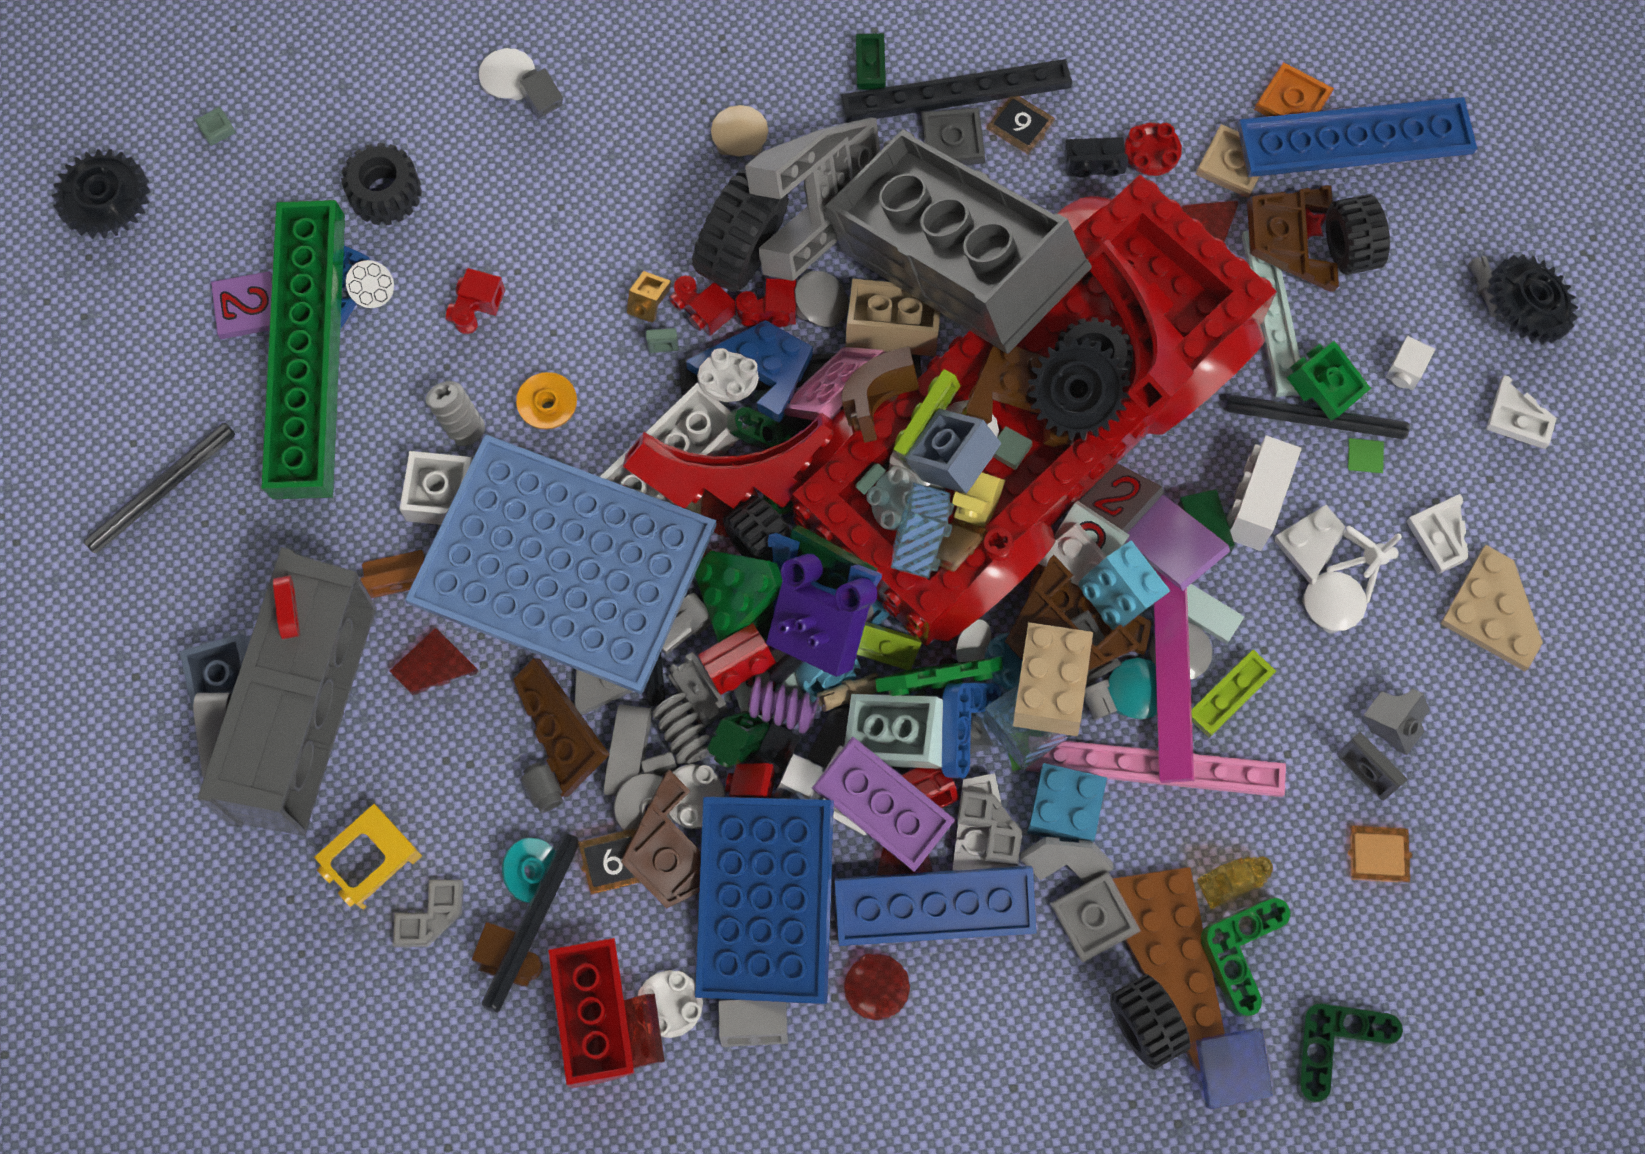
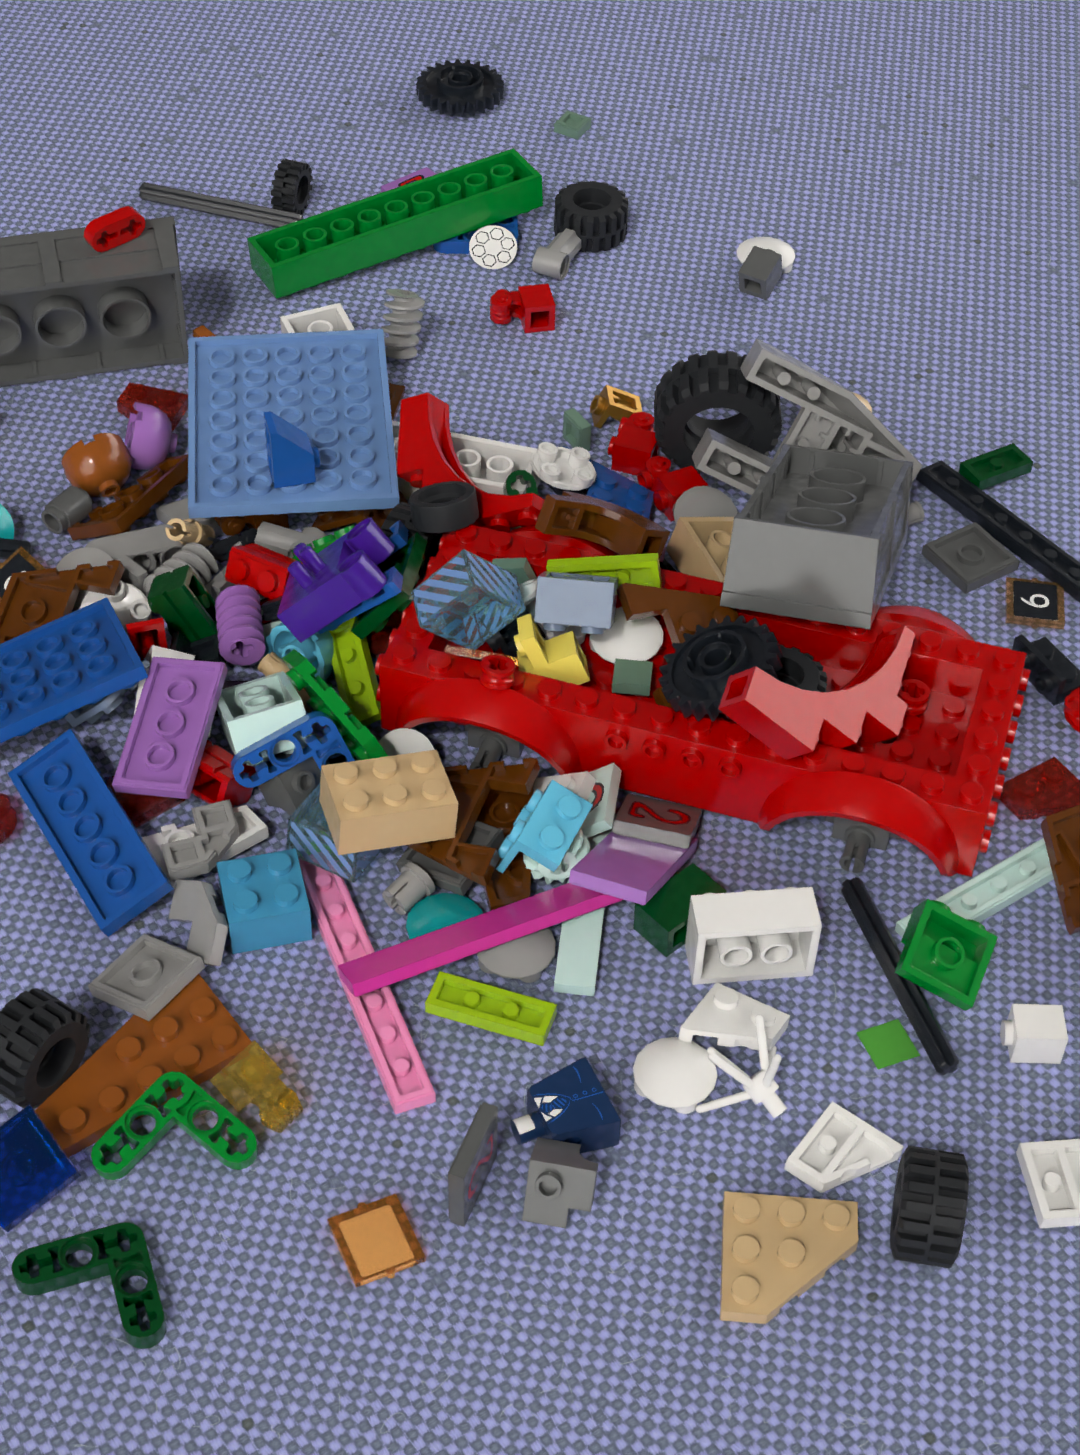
camera: 60 degrees right, 25 degrees down
(188, 414) = (291, 186): none -> black tyre
(417, 242) = (556, 258): none -> light grey piece
(488, 686) = (149, 436): none -> medium lavender cylinder
(509, 741) = (98, 465): none -> dark orange cylinder
(542, 389) = (458, 381): light orange dish -> none
(639, 585) = (289, 453): none -> blue slope
(646, 702) = (189, 531): none -> tan pin
(766, 482) = (444, 507): none -> black tyre
(1343, 685) = (569, 1109): none -> dark blue torso
(1528, 507) = (929, 1207): none -> black tyre

